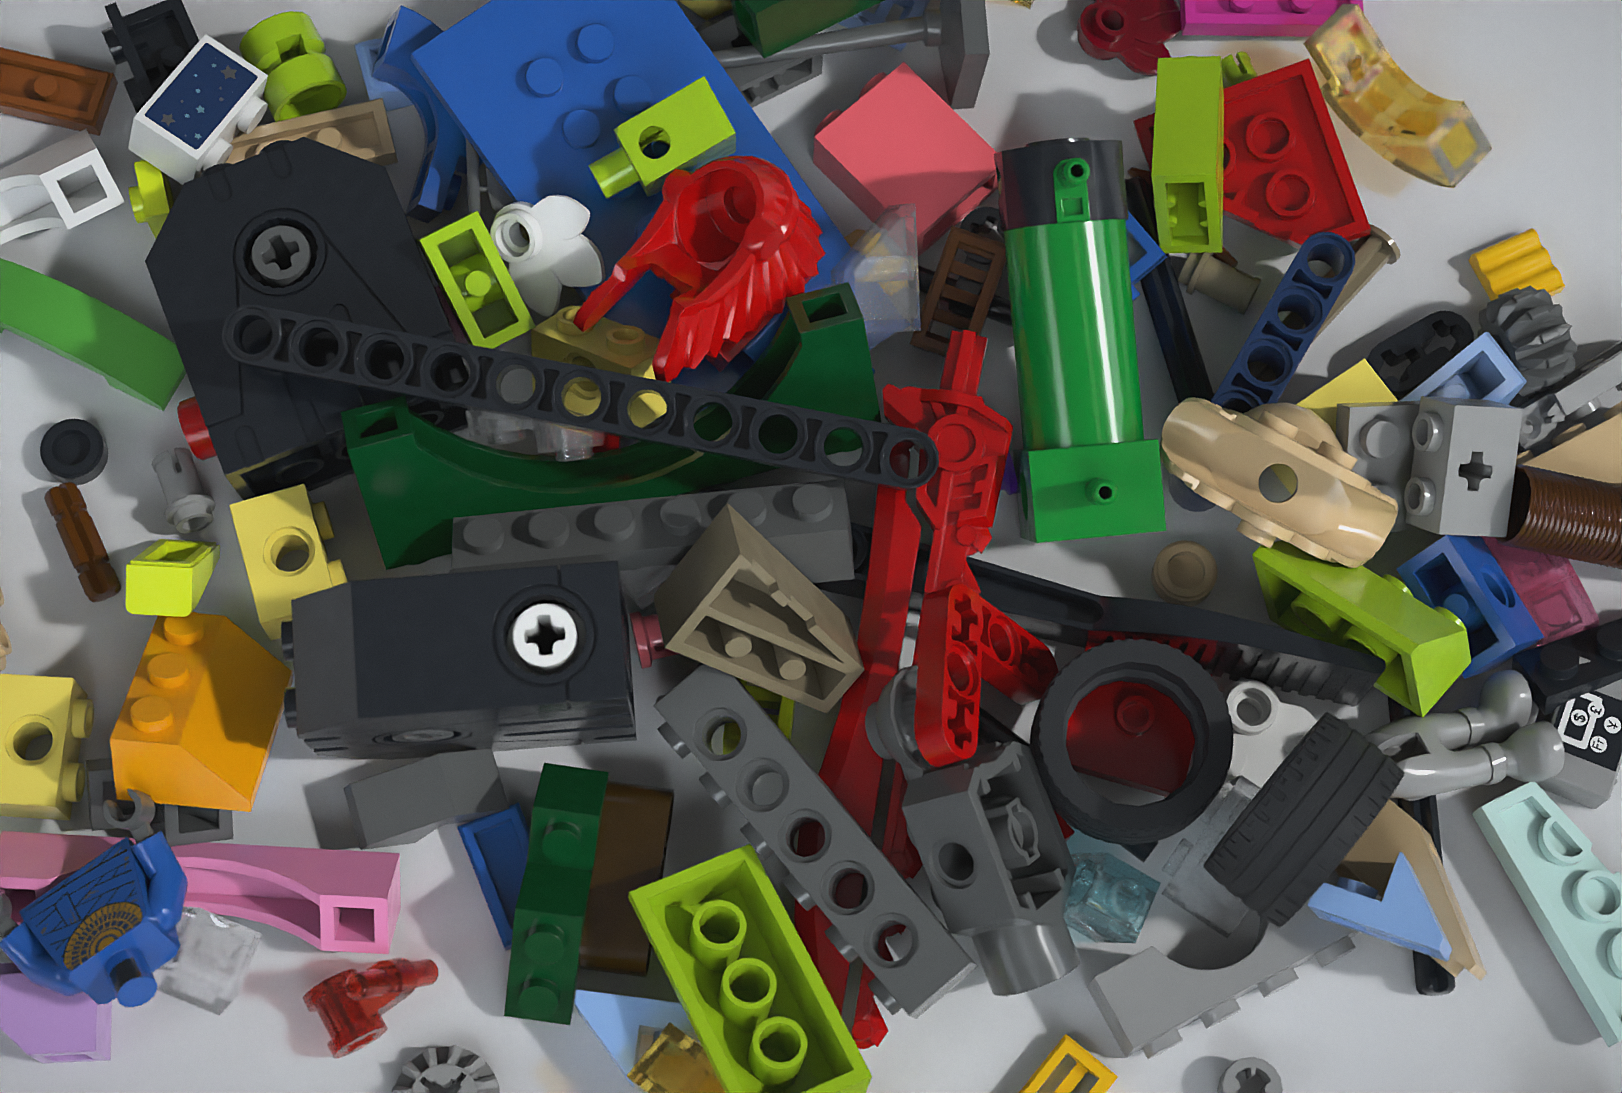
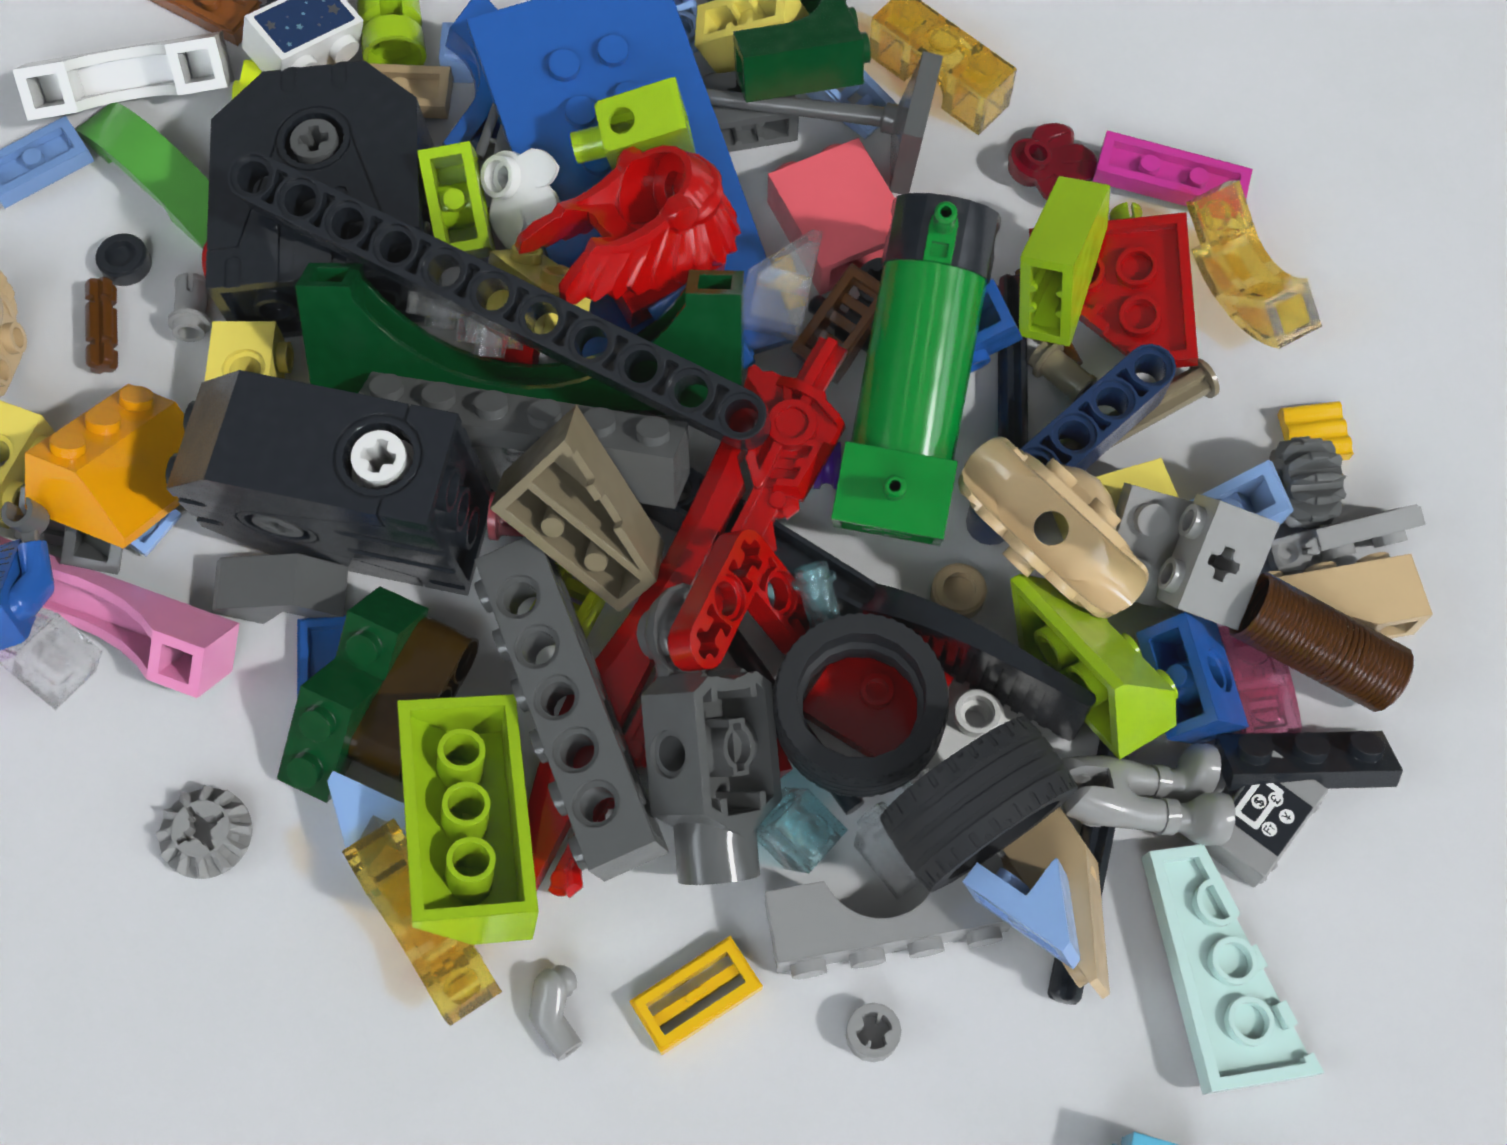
camera: 20 degrees right, 5 degrees down
(170, 577) = (144, 361): neon yellow slope -> none
(355, 1000) = (162, 726): clear red piece -> none
(1038, 621) = (816, 591): none -> clear light blue pin
(1411, 344) = (1208, 465): black beam -> none

